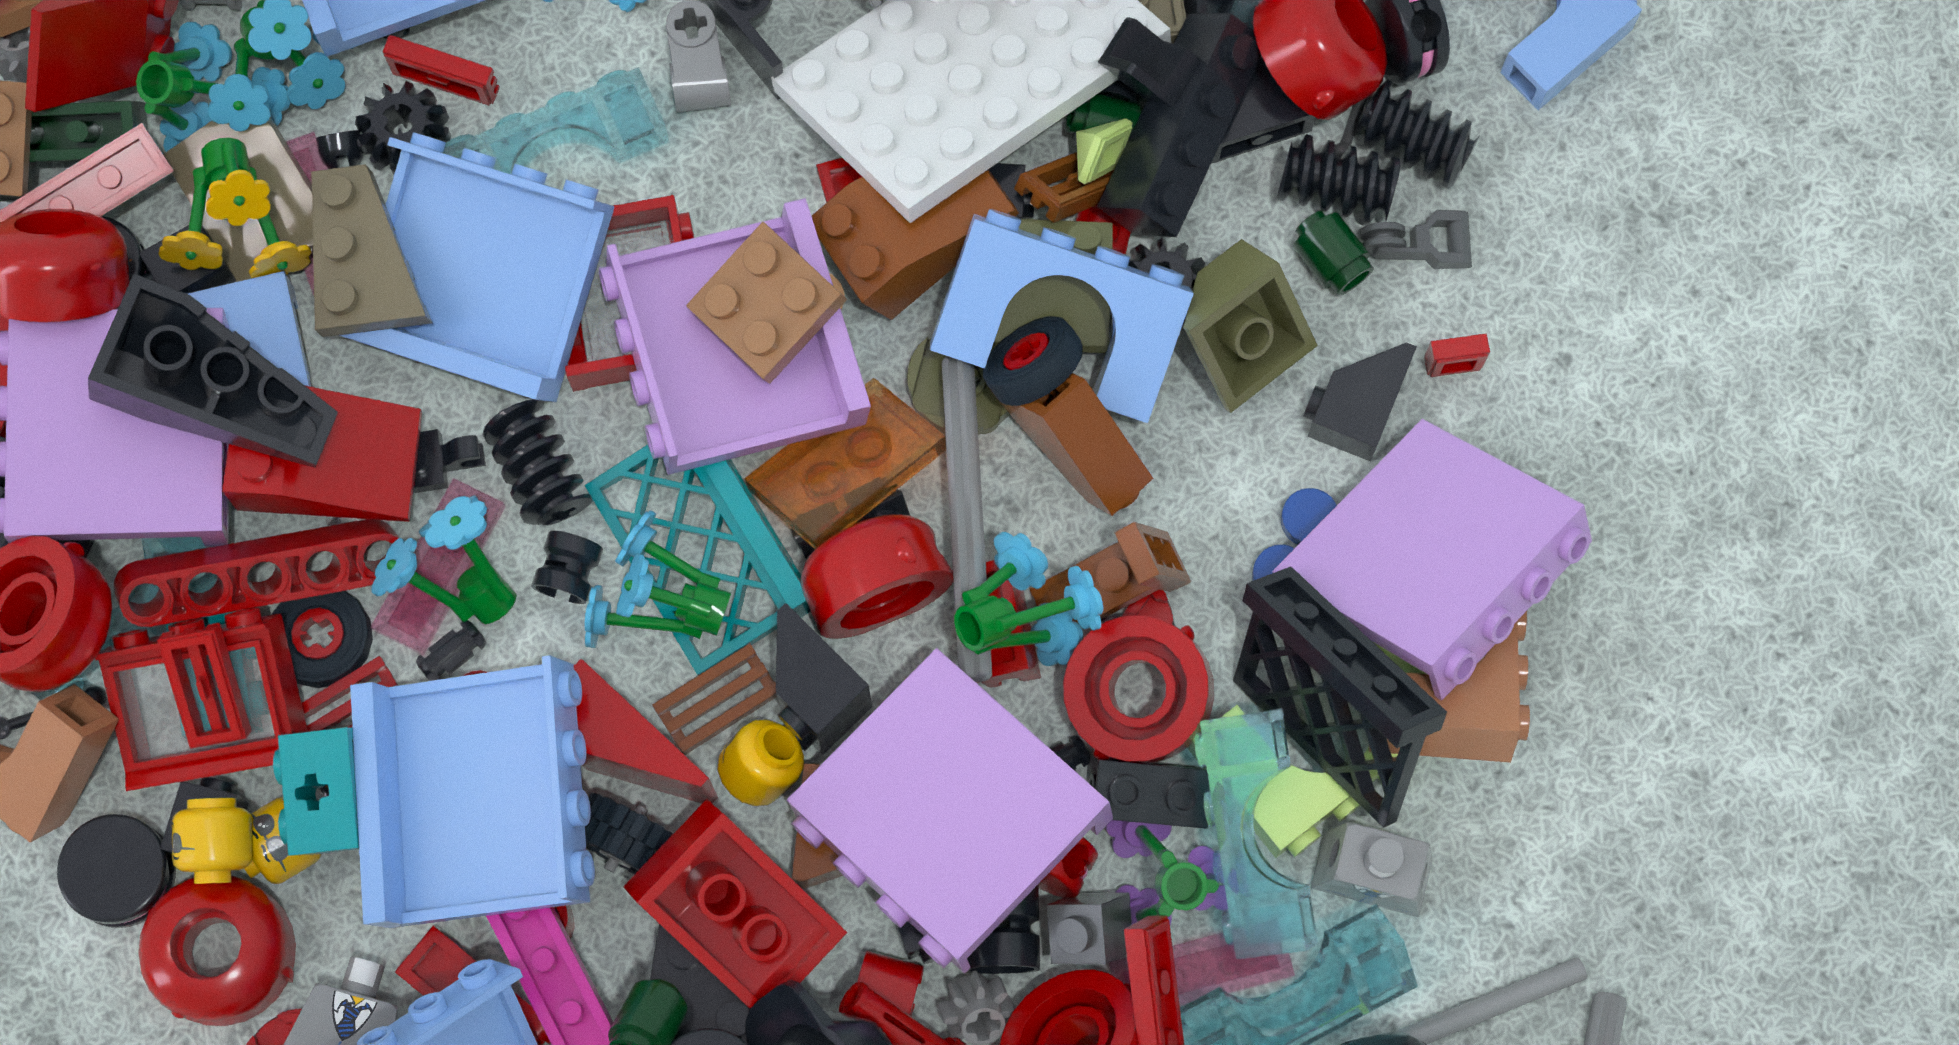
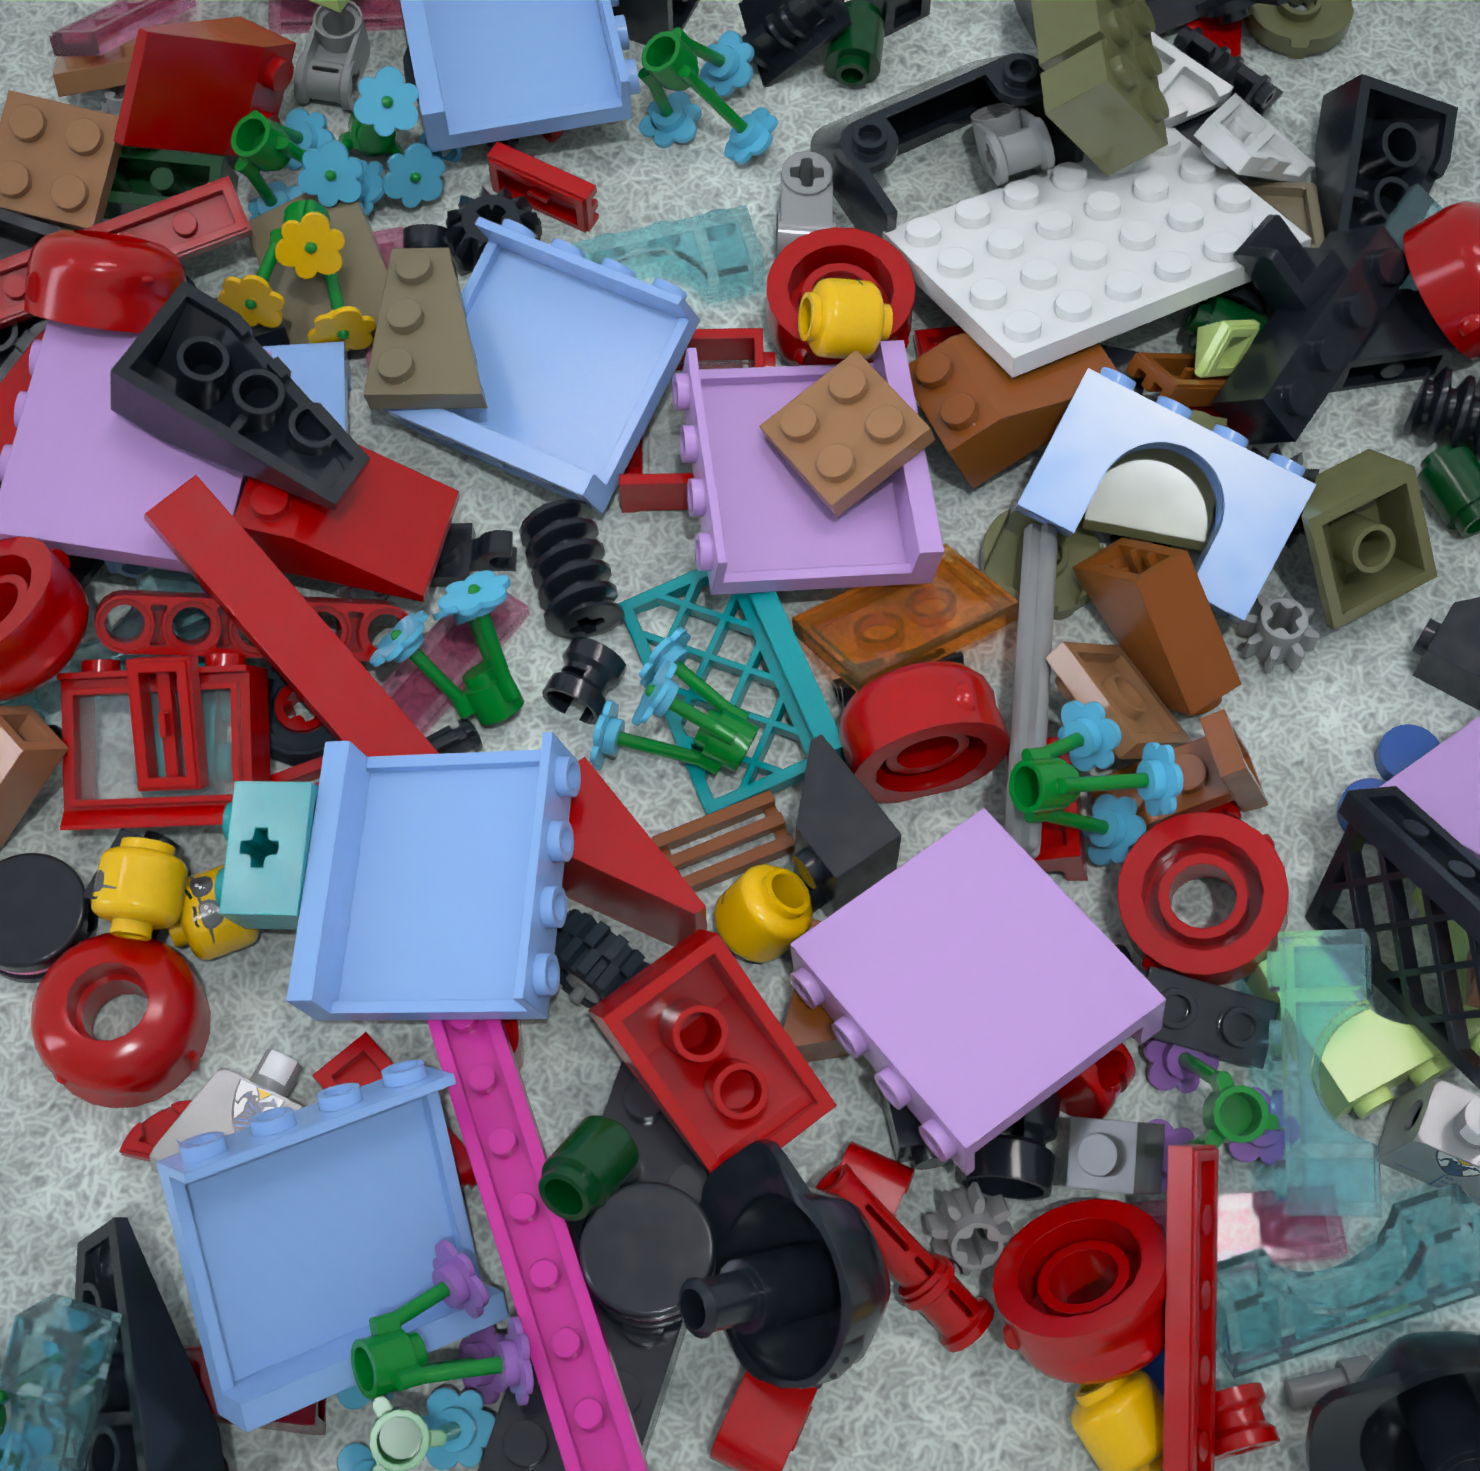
camera: 10 degrees right, 10 degrees down
(294, 580) = (282, 623): none -> red tile
(733, 116) = (841, 255): none -> red piece
(747, 188) = (844, 318): none -> yellow head
(1033, 361) = (1127, 535): black bush -> none
(1047, 509) = (1109, 677): none -> medium nougat plate
(1181, 434) = (1278, 632): none -> light grey gear

